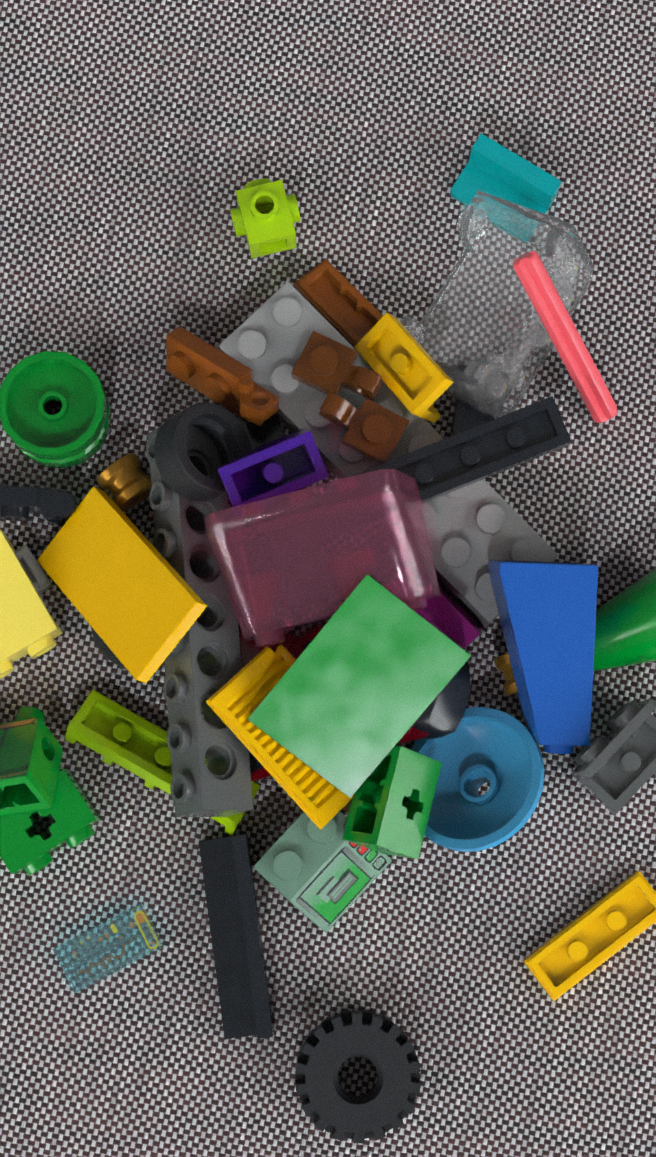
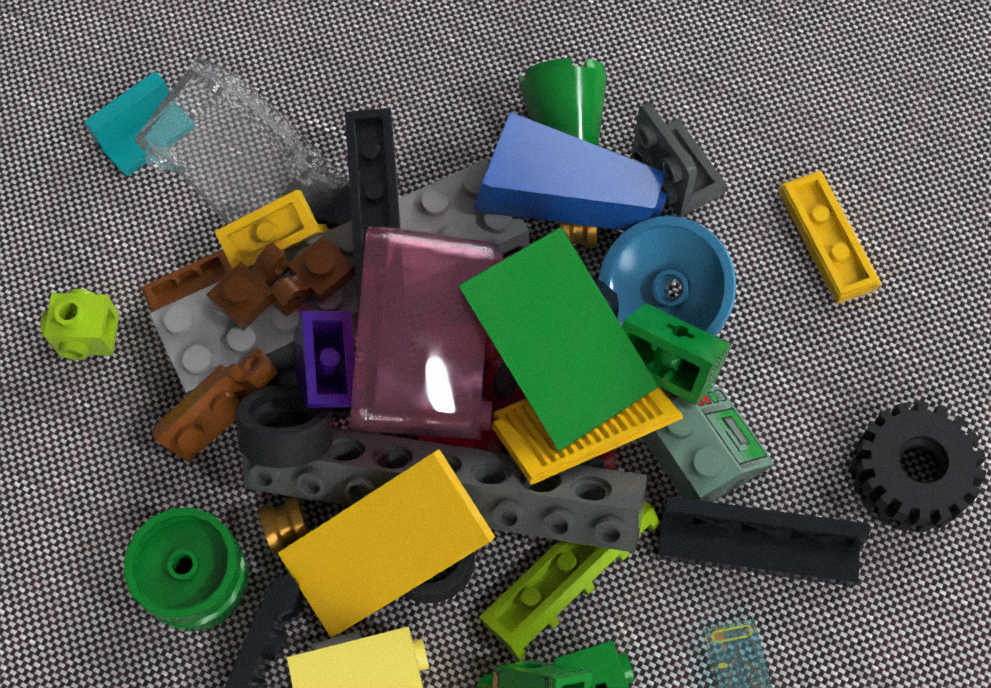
camera: 70 degrees left, 15 degrees down
(565, 336) = (288, 102): coral axle -> none

